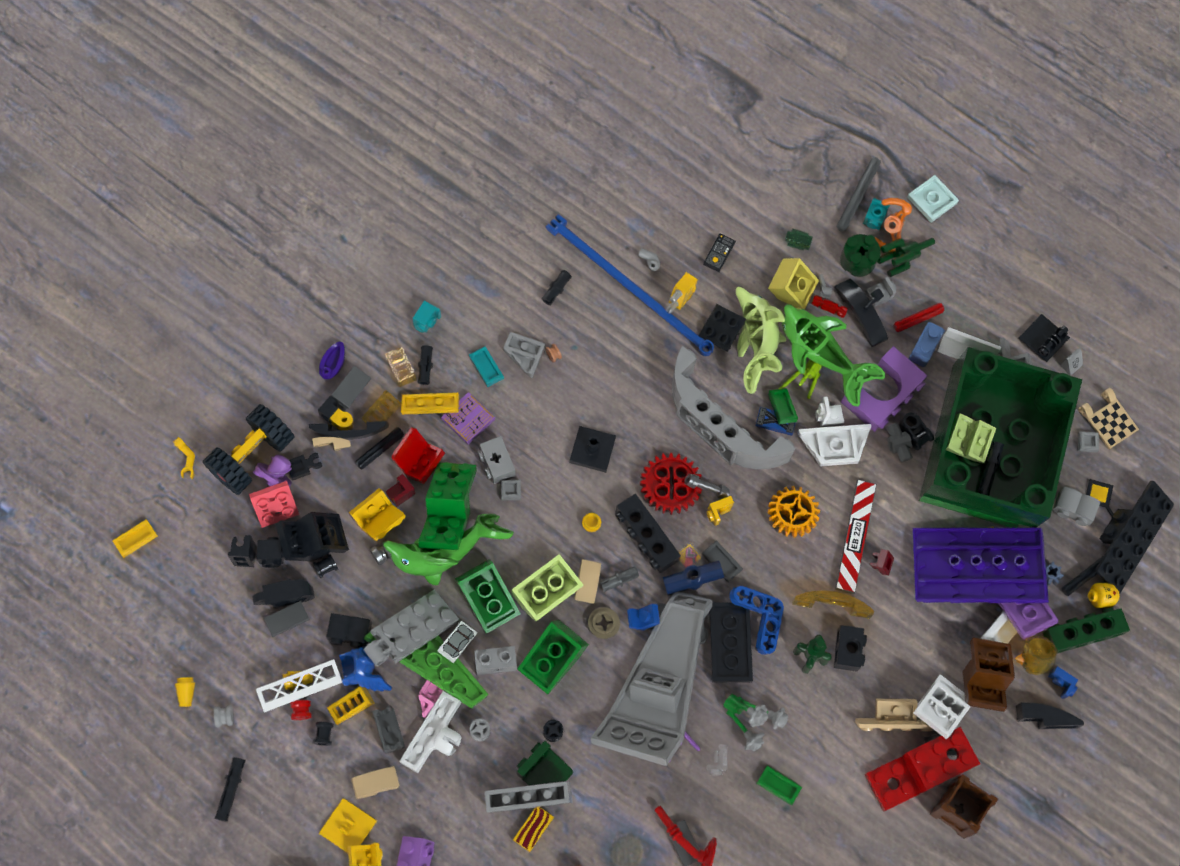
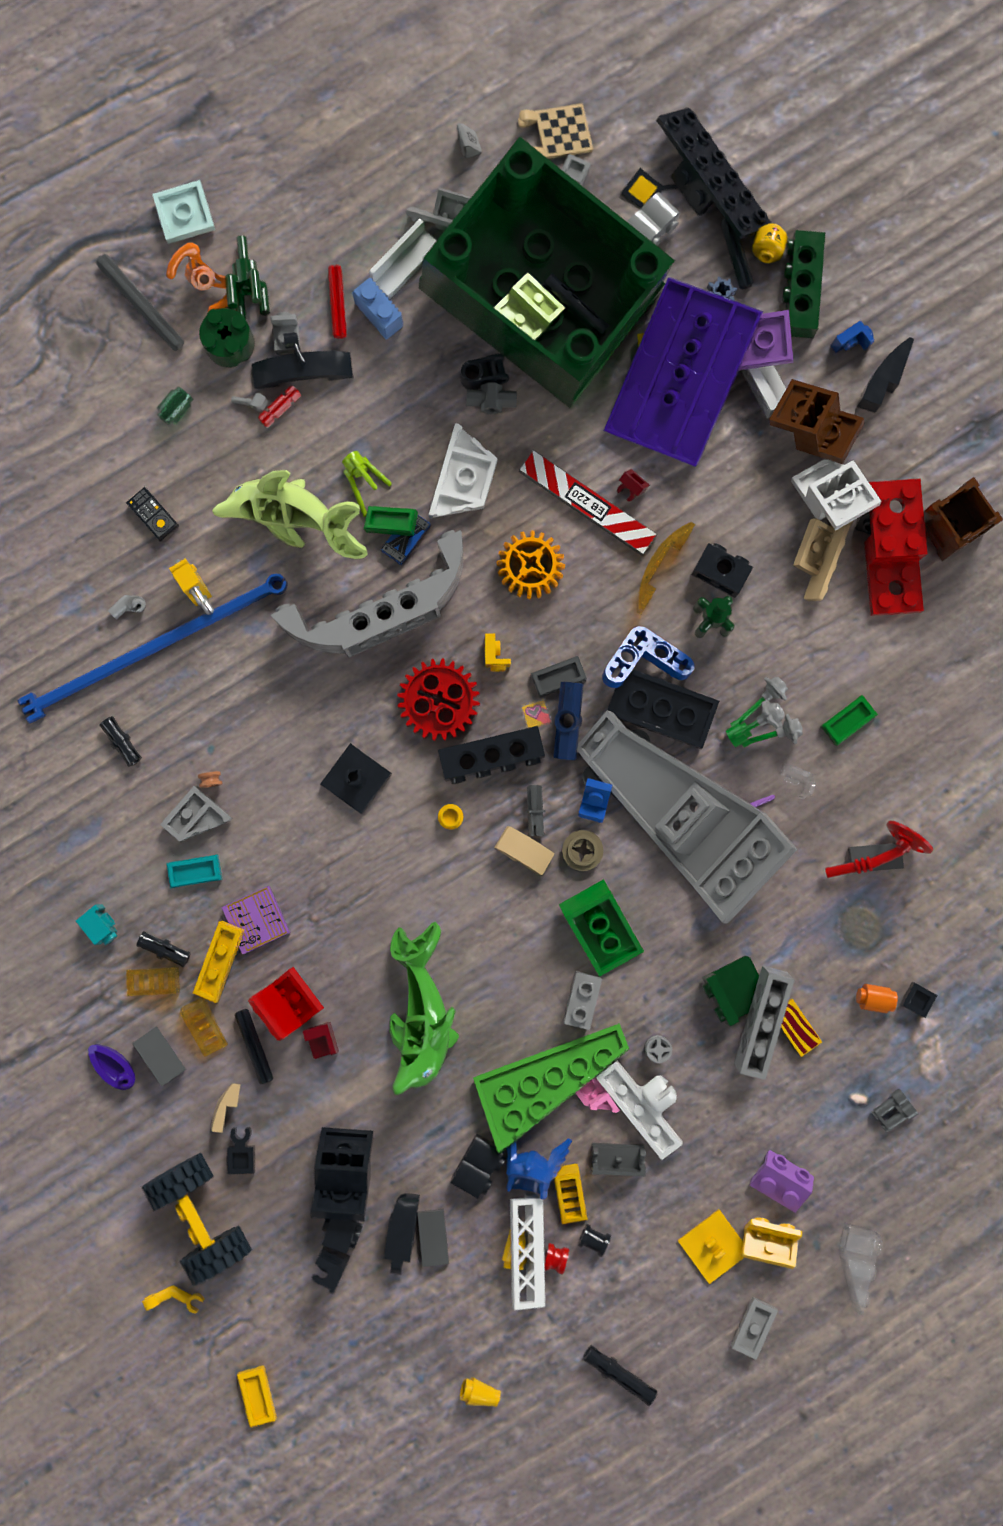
camera: 60 degrees left, 15 degrees up
(223, 716) = (528, 1355): light grey wheel -> none
(271, 501) = (280, 1208): coral plate -> none
(275, 471) = (240, 1194): medium lavender plate -> none
(325, 566) = (384, 1168): black bush -> none
(335, 416) = (198, 1082): leg -> none
(372, 429) = (206, 1107): black slope -> none
(374, 782) = (676, 1197): tan slope -> none
(377, 515) = (345, 1081): yellow bracket -> none
(380, 553) = (389, 1097): flat silver wheel -> none
(410, 629) = (507, 1091): light grey hinge -> none
(447, 506) = (368, 990): green bracket -> none
(457, 642) = (541, 1038): tile -> none
(487, 596) = (496, 980): green slope -> none
(496, 449) = (313, 898): light grey brick -> none
(510, 490) = (370, 900): light grey tile -> none
(546, 588) = (519, 905): yellowish green slope -> none
(555, 727) = (693, 965): black wheel -> none
(720, 491) = (450, 671): flat silver bar -> none
(722, 327) = (258, 552): black hinge -> none
(793, 283) = (232, 437): light yellow slope -> none
(813, 340) = (325, 446): bright green animal -> none
(829, 415) = (423, 468): white bracket -> none
(875, 214) = (181, 302): teal brick -> none
(908, 380) = (415, 351): medium lavender arch -> none
(1038, 655) = (816, 353): clear yellow piece -> none
(1044, 337) = (423, 160): black hinge -> none

